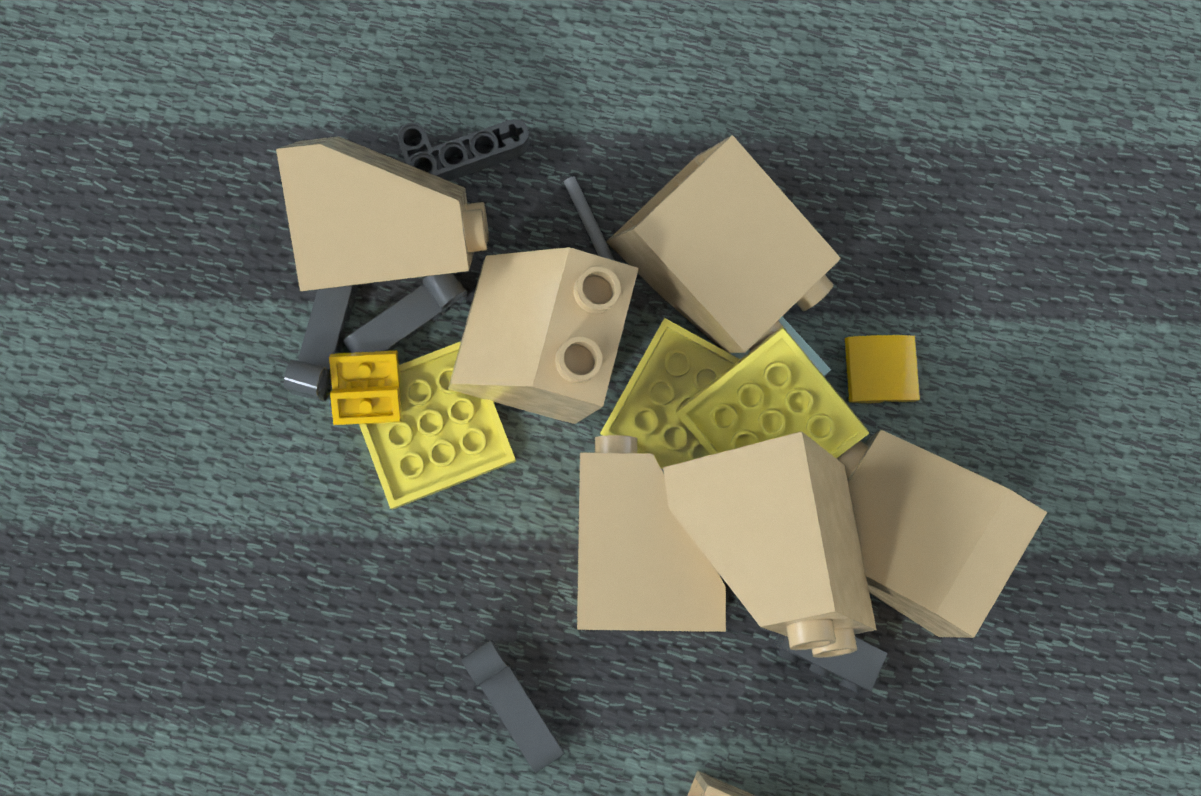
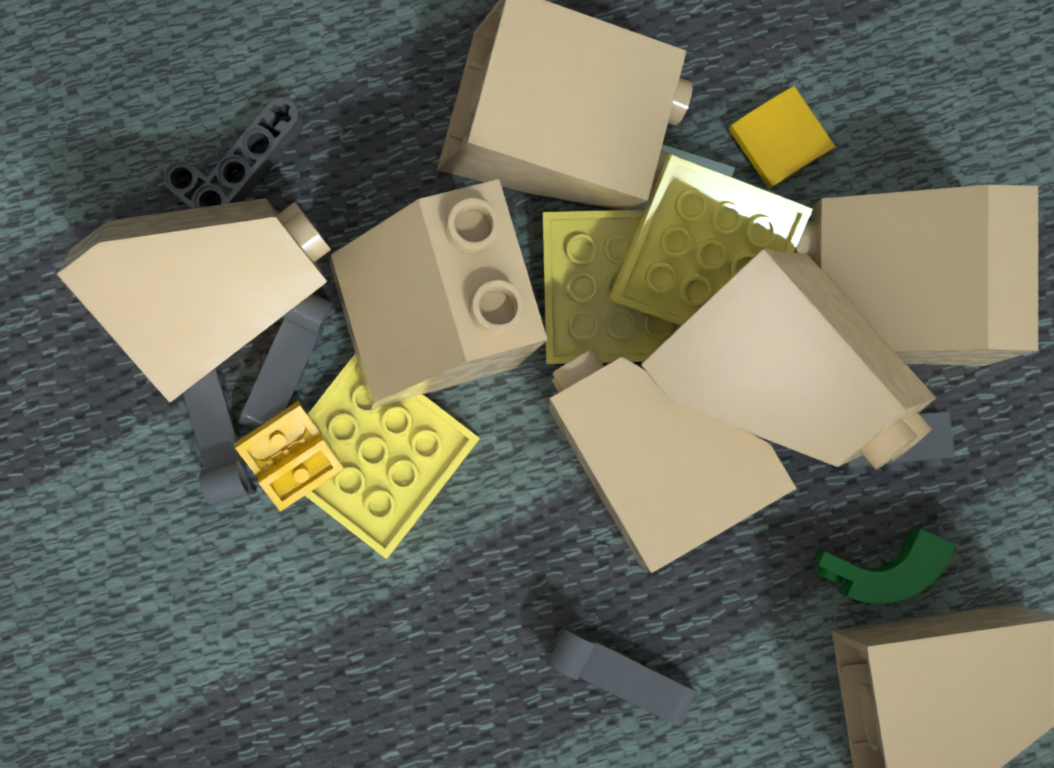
camera: 25 degrees left, 5 degrees up
(587, 218) = (408, 158): light grey bar -> none
(781, 762) = (909, 574): none -> green arch

